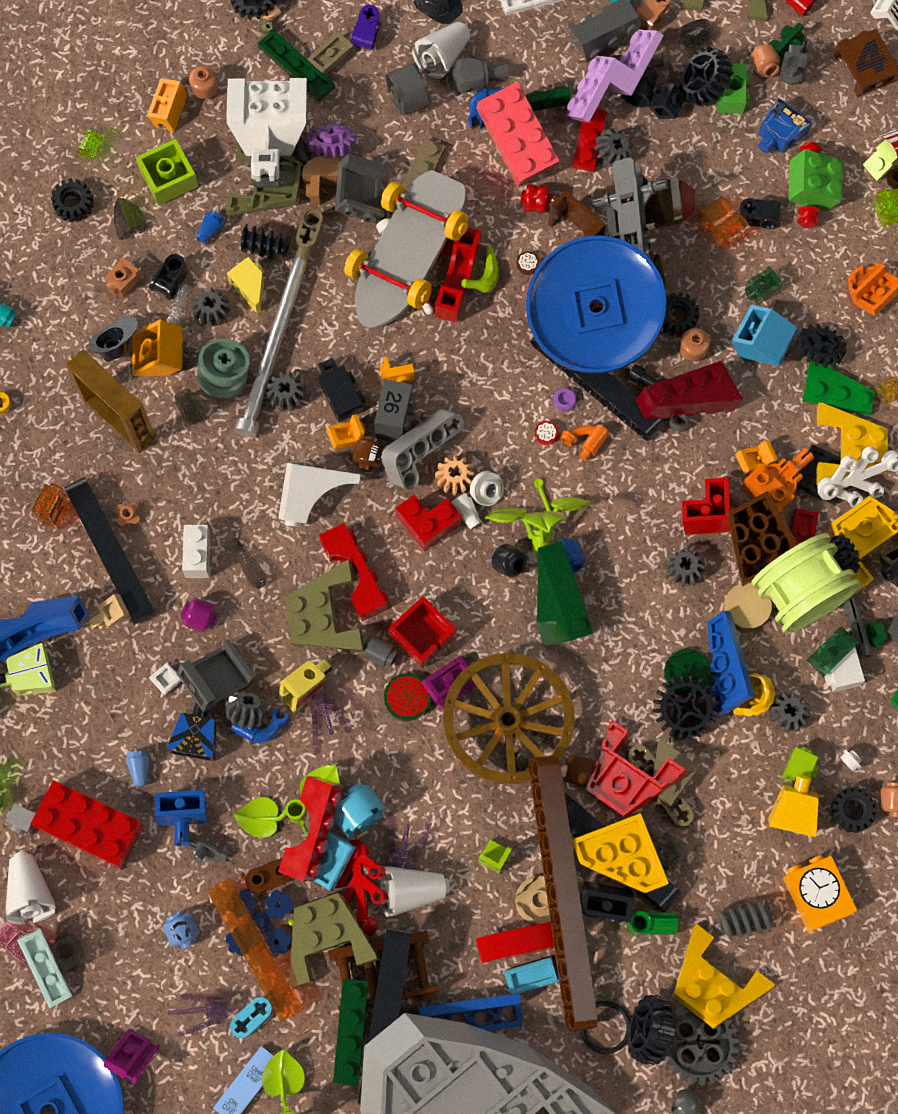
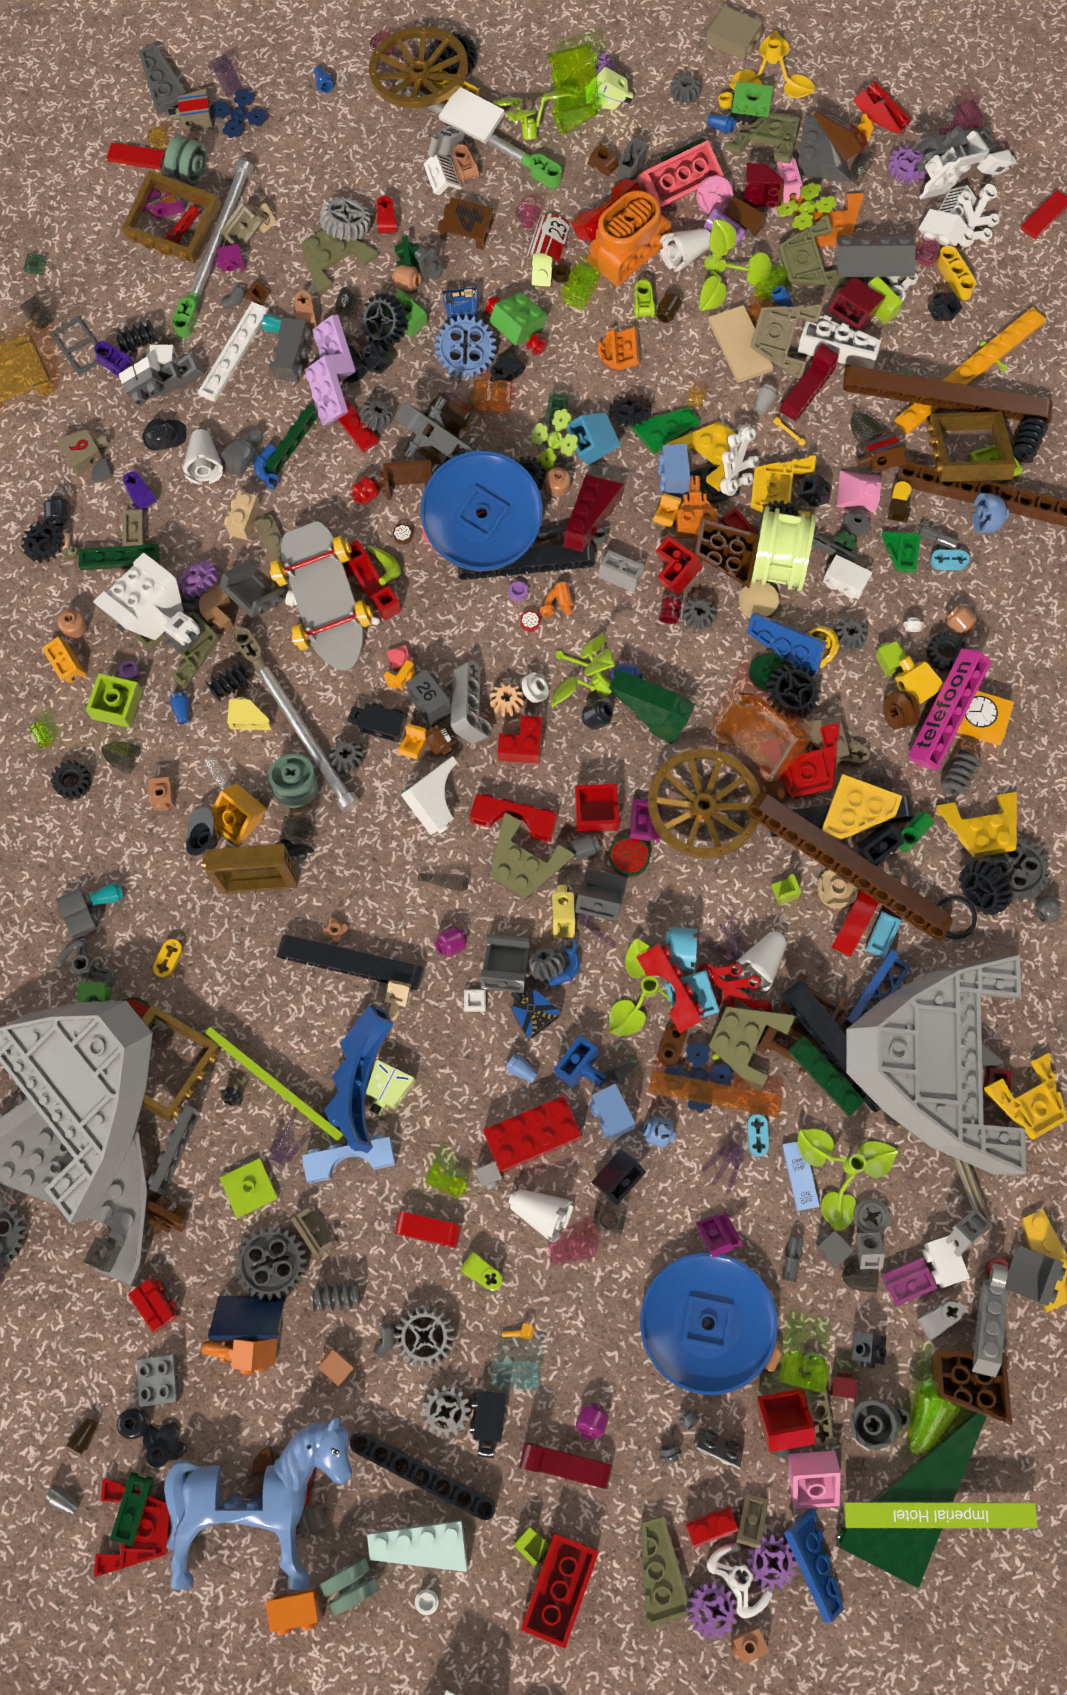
camera: 45 degrees left, 0 degrees up
(44, 967) = (607, 1244): light aqua tile -> none
(51, 505) = (283, 973): clear orange brick -> none
(110, 928) = (618, 1177): none -> black brick
(160, 874) = (612, 1112): none -> medium blue brick
(162, 416) = (296, 850): none -> black plate
(167, 280) = (191, 765): black piece -> none
(196, 551) = (405, 905): white brick -> none
(204, 312) = (242, 759): dark grey gear -> none
(206, 160) = (129, 670): none -> medium lavender tile
(345, 702) = (601, 895): none -> dark grey panel
(407, 89) = (210, 501): dark grey brick -> none
(413, 355) = (398, 657): none -> coral plate
(421, 124) = (242, 515): none -> tan brick
(468, 511) = (537, 710): white cone -> none
(517, 134) = (311, 462): coral brick -> none
(618, 712) = (760, 734): none -> clear orange windscreen
(662, 467) = (620, 571): none -> light grey hinge
(664, 539) = (670, 609): none -> dark red wheel
(732, 309) = (555, 440): none -> lime plant
(755, 816) = (901, 710): none -> reddish brown piece
(760, 175) = (448, 346): none -> medium blue gear
(794, 857) = (949, 709): none -> dark pink brick
(797, 430) = (674, 470): none -> medium blue brick
(832, 651) = (837, 573): clear green plate -> none

